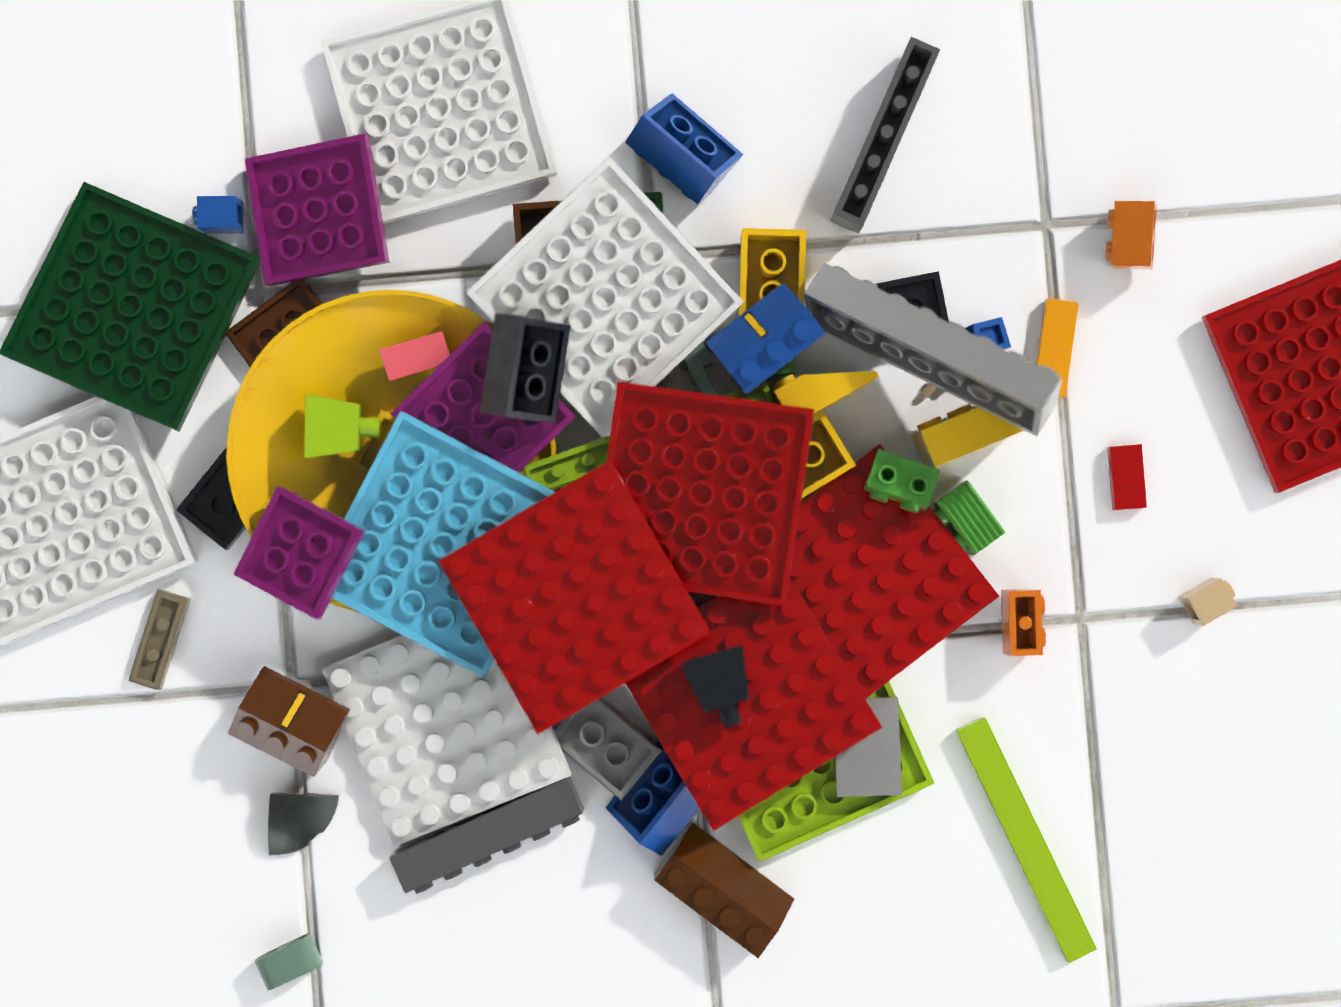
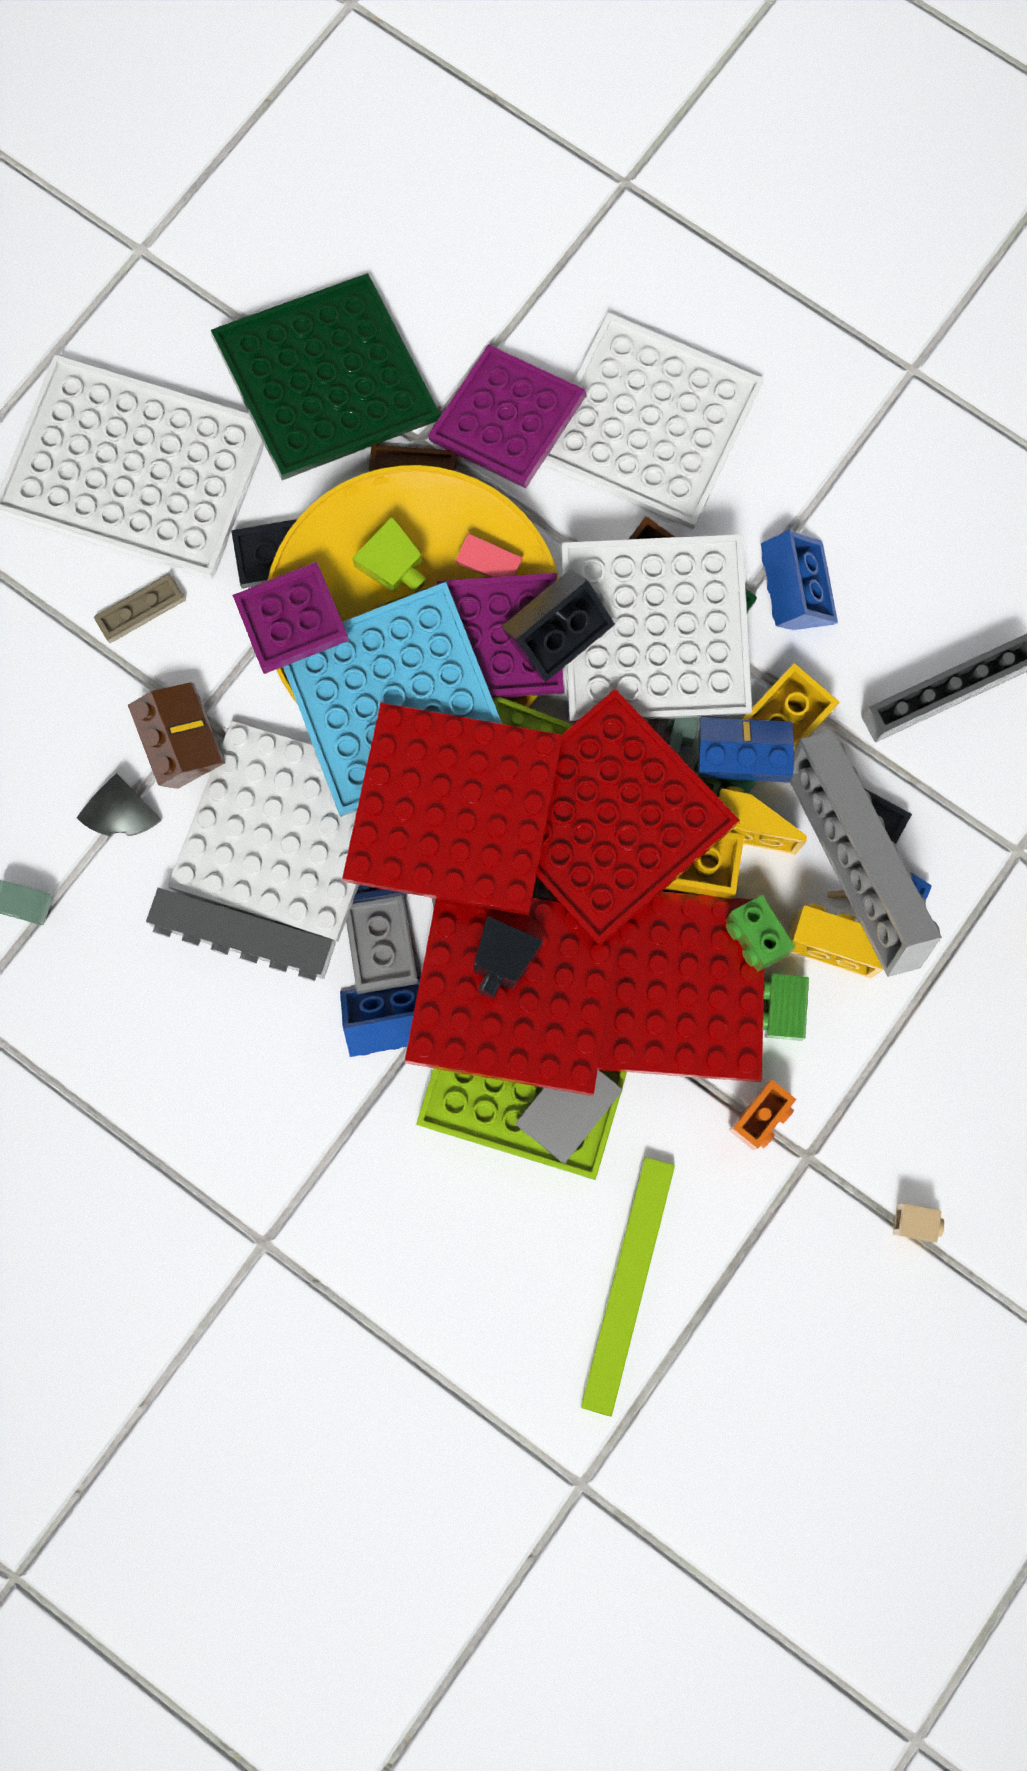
camera: 40 degrees right, 10 degrees down
(219, 215) = (438, 366): blue brick -> none
(724, 889) = (373, 1122): reddish brown slope -> none
(1057, 338) = (957, 939): light orange tile -> none
(1127, 477) = (930, 1080): red tile -> none

